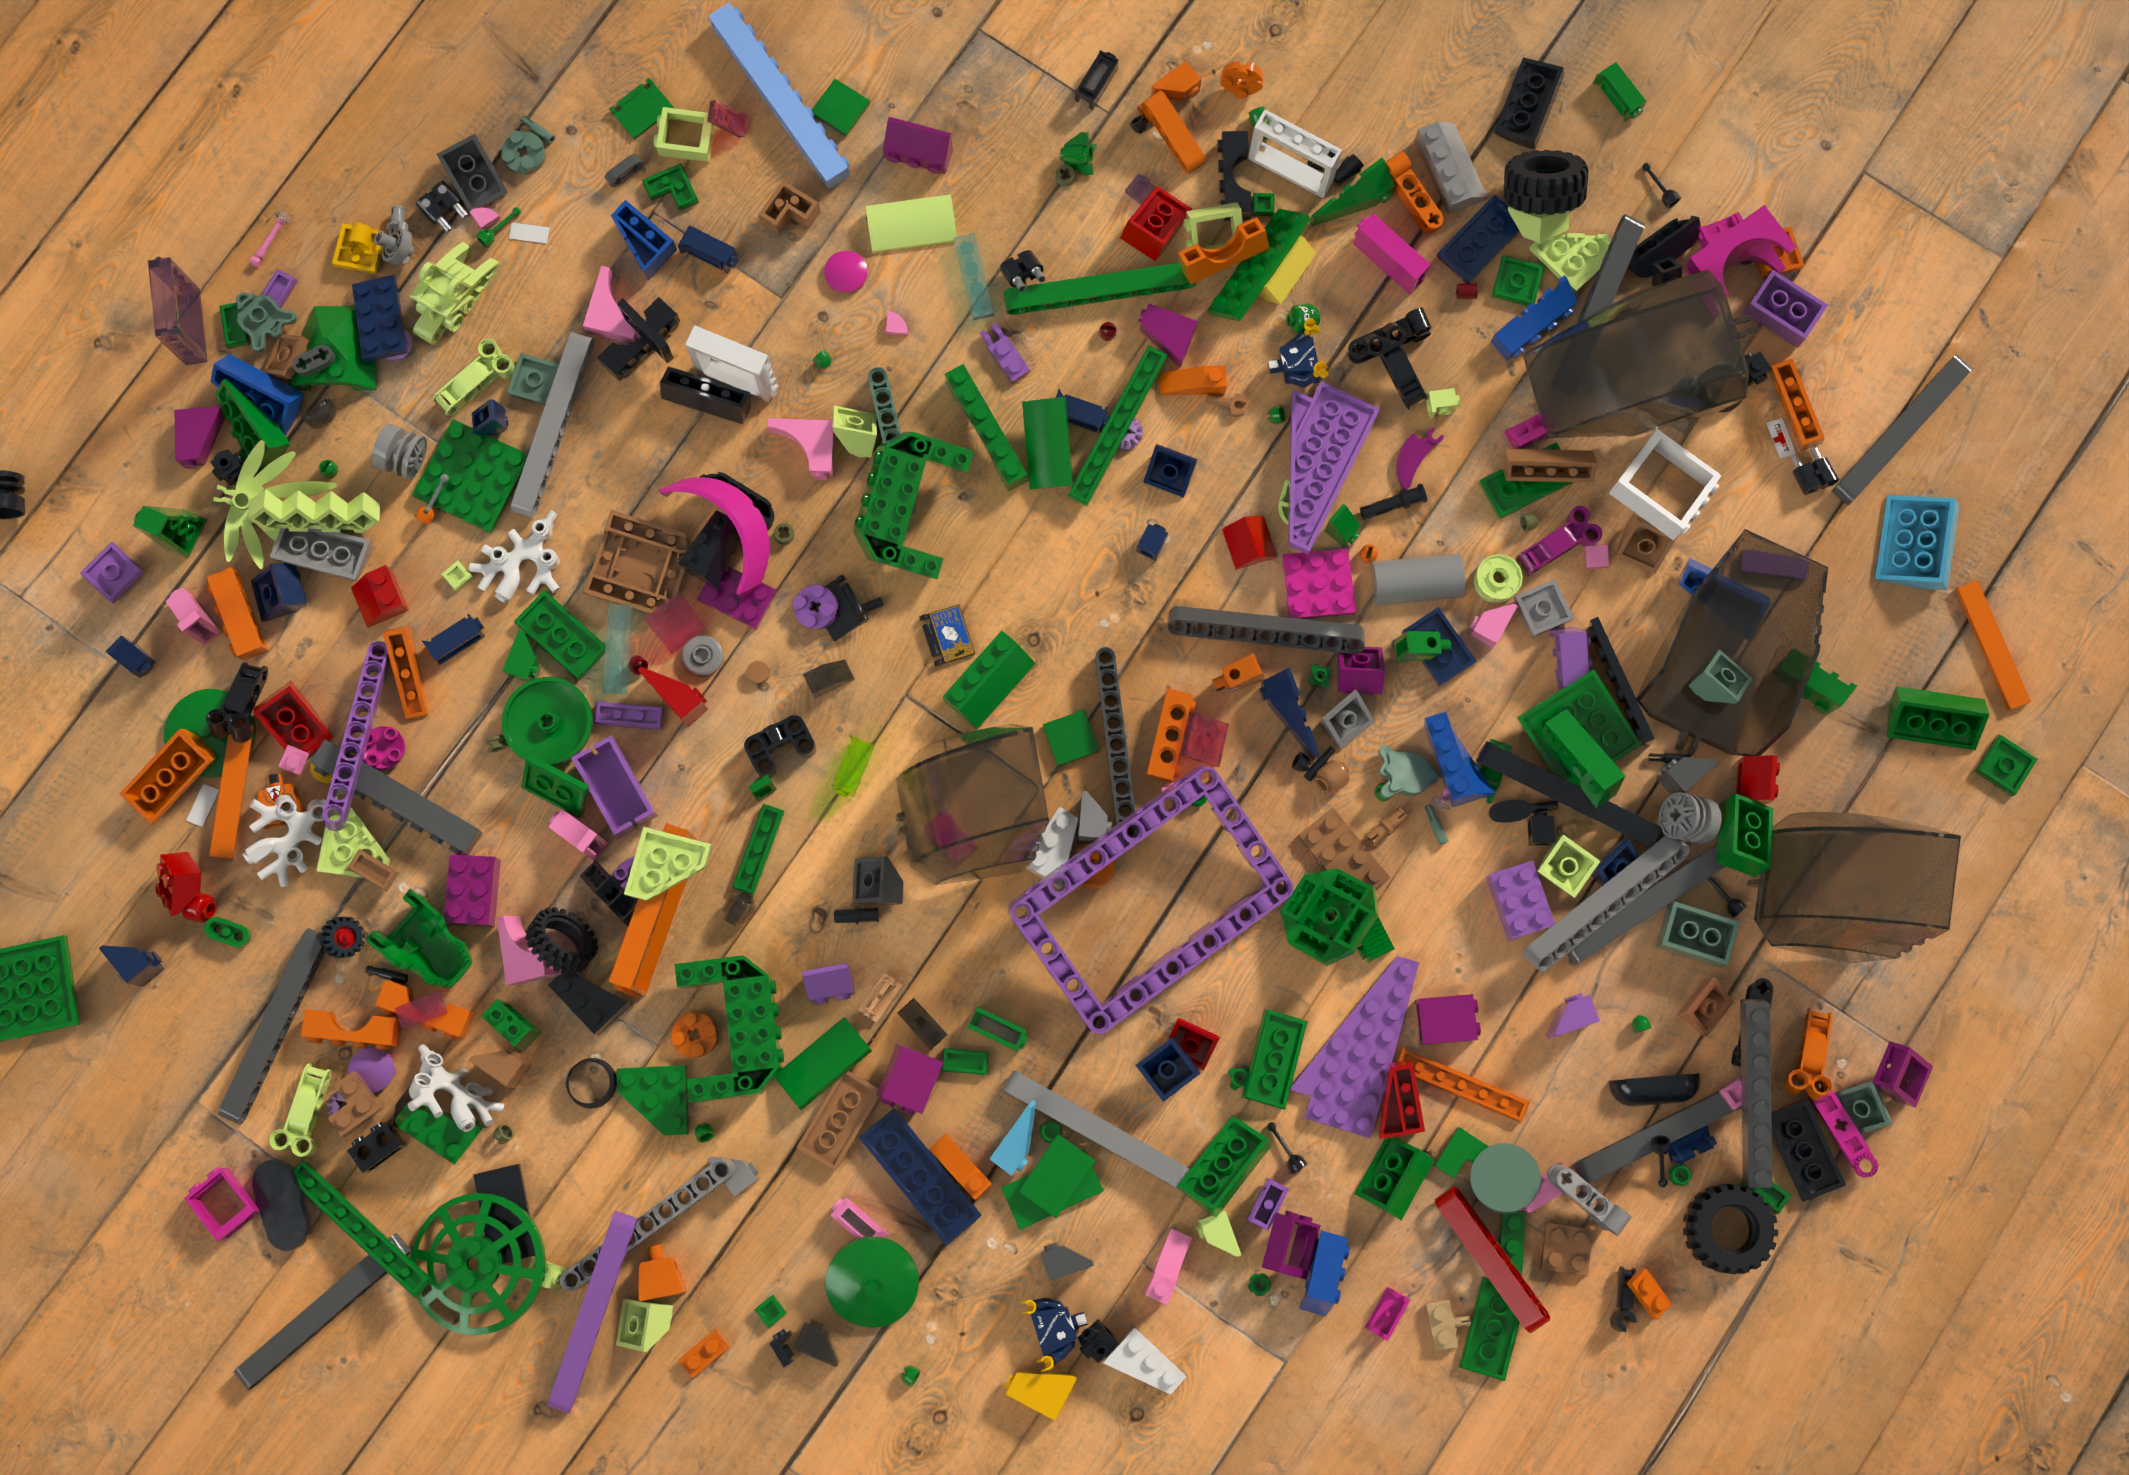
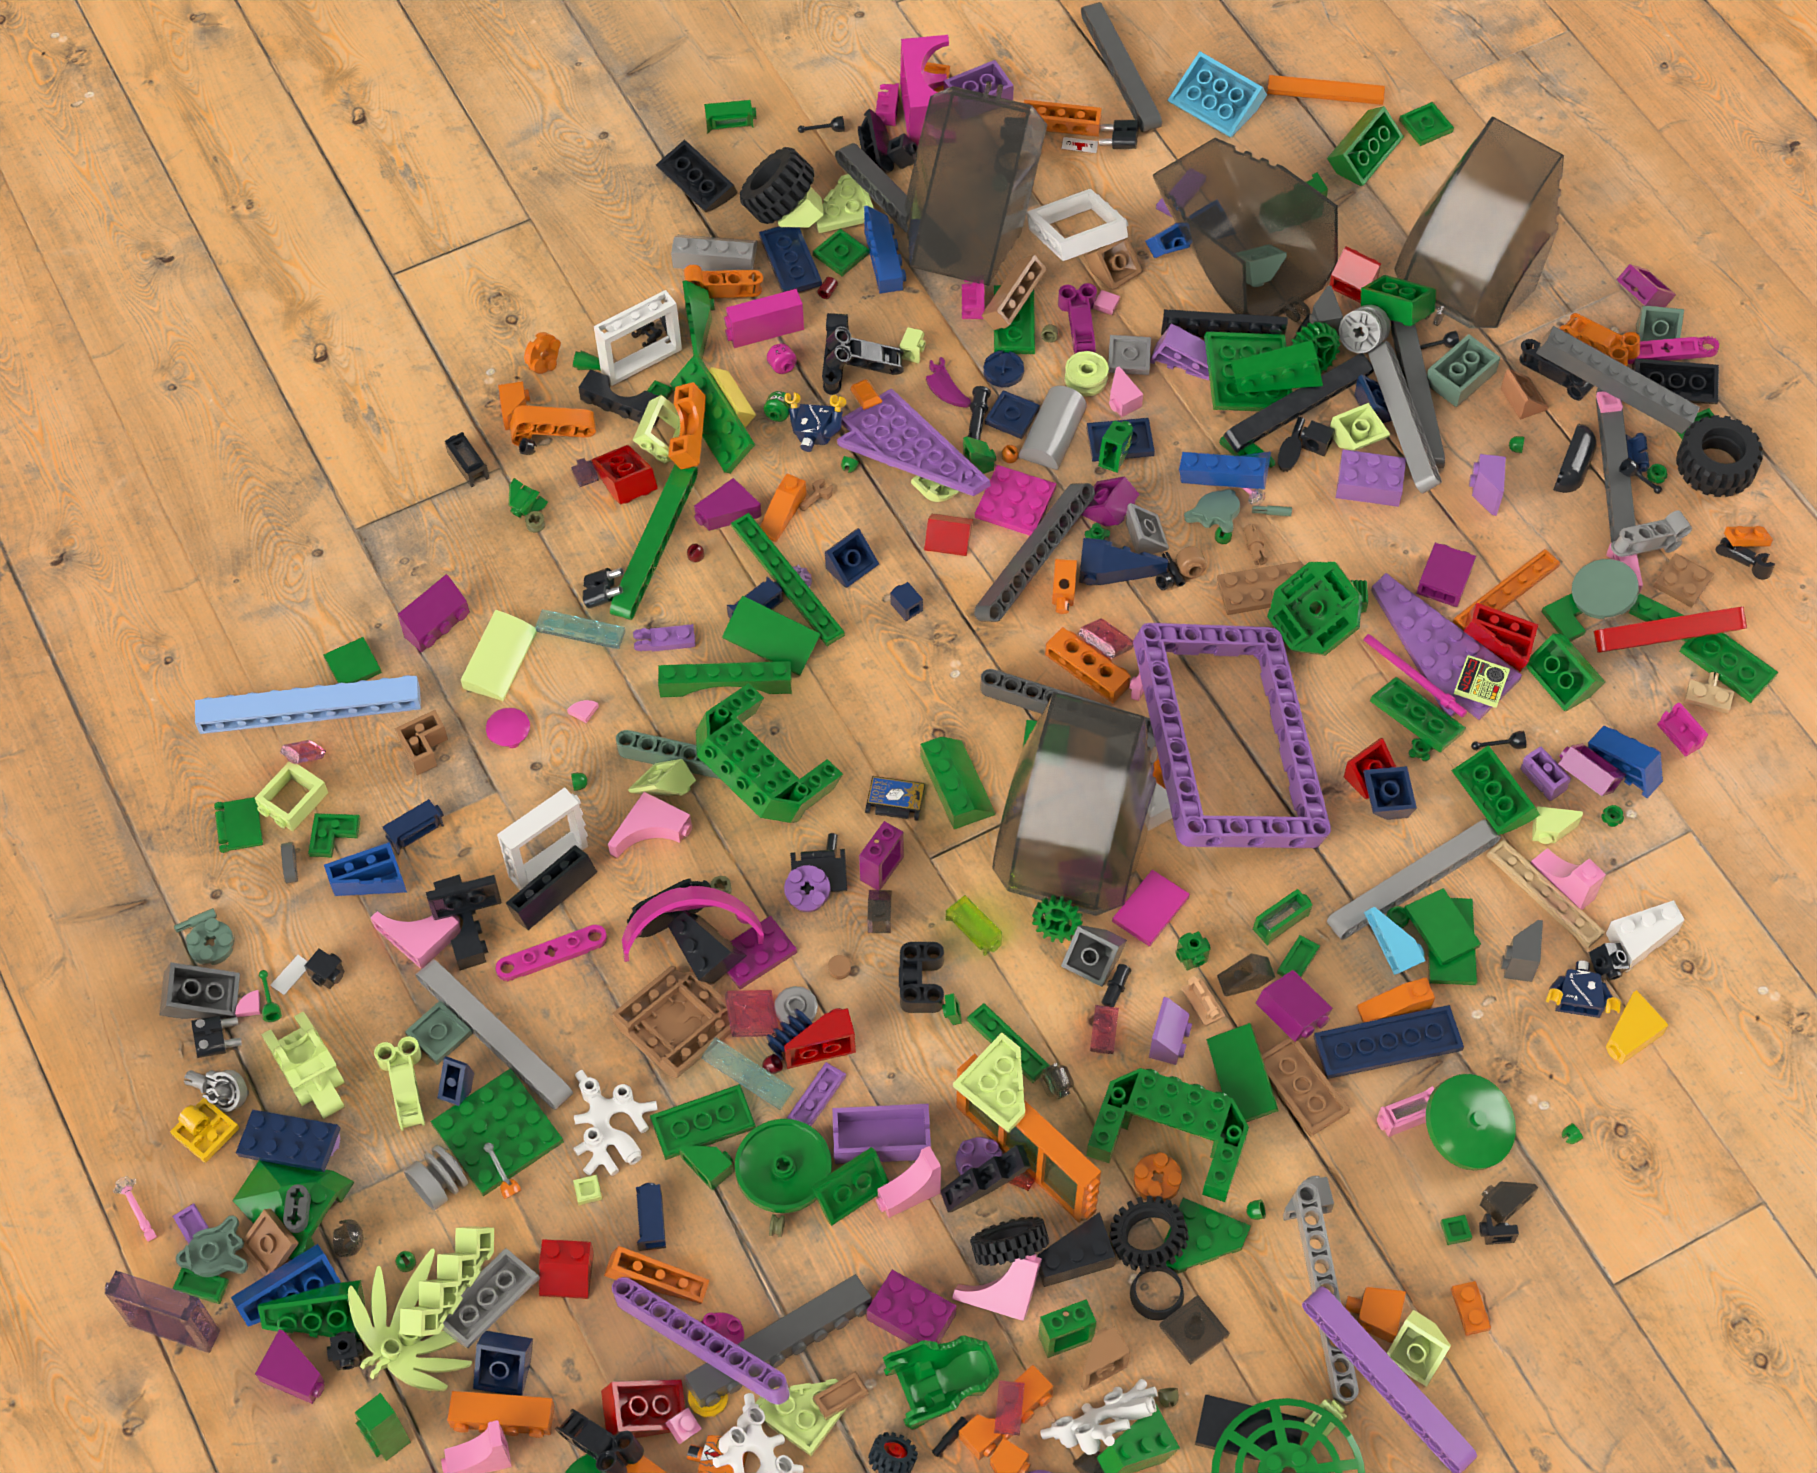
camera: 60 degrees left, 20 degrees down
(542, 257) = (324, 969): none -> black brick
(573, 1128) = (1194, 1329): none -> clear smoke tile
(635, 1077) = (1159, 1255): none -> black tyre
(640, 419) = (565, 948): none -> dark pink piece
(668, 664) = (788, 1032): none -> dark blue piece
(809, 925) = (1104, 1029): none -> clear pink plate
(877, 657) = (881, 859): none -> magenta window
(888, 834) = (1056, 918): none -> green gear
(927, 972) = (1193, 950): none -> green brick
(950, 909) = (1150, 908): none -> dark pink tile
(1145, 1254) = (1545, 894): none -> tan tile
(1302, 1080) = (1446, 700): none -> dark pink bar
(1338, 1103) = (1482, 681): none -> tile
(1359, 292) = (781, 358): none -> dark pink head
(1360, 390) = (865, 394): none -> orange tile
(1415, 533) = (1012, 414): none -> dark blue tile
(1464, 499) = (1003, 369): none -> dark blue tile
(1643, 781) = (1324, 340): none -> green gear

